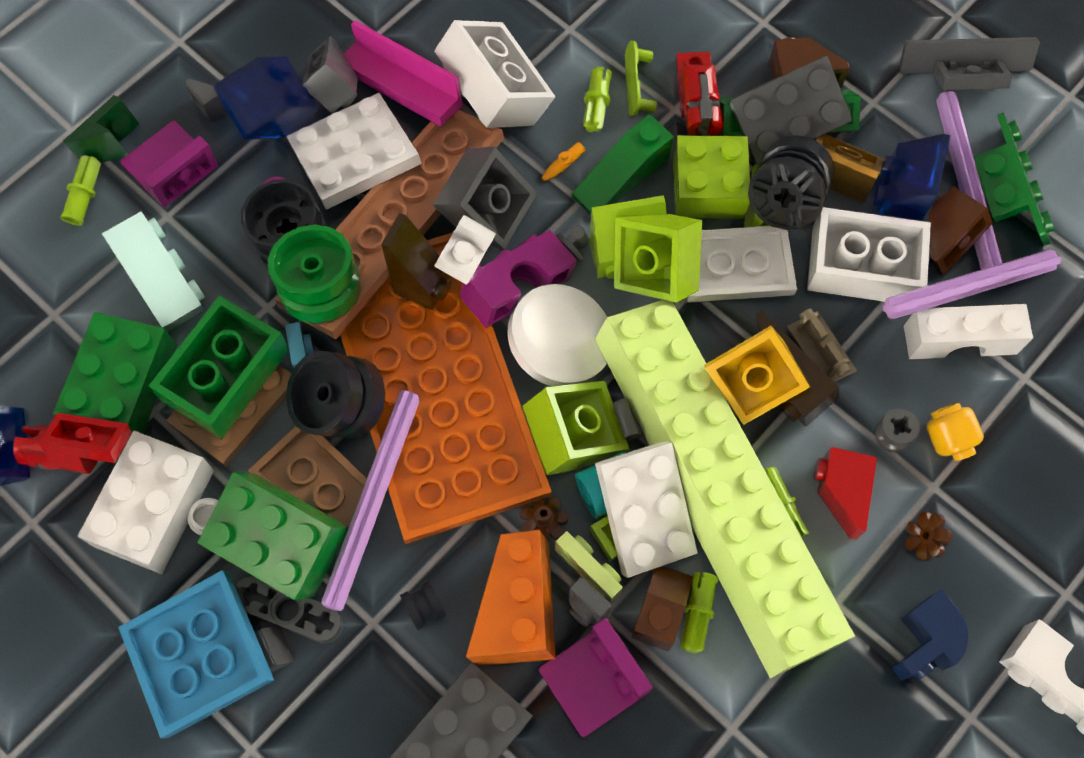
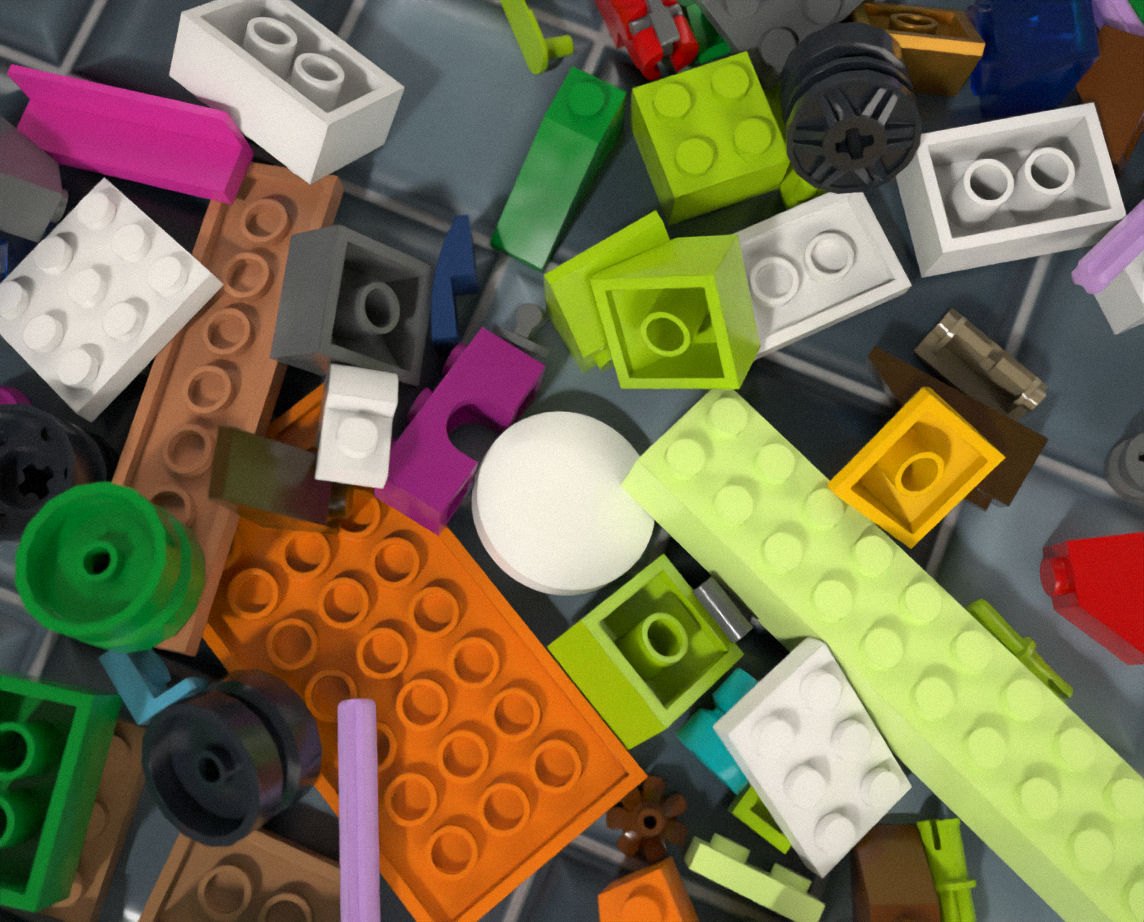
camera: 20 degrees left, 10 degrees up
(545, 203) = (453, 277): none -> dark blue slope
(563, 161) = (456, 191): light orange helmet -> none
(596, 99) = (472, 65): lime axle -> none

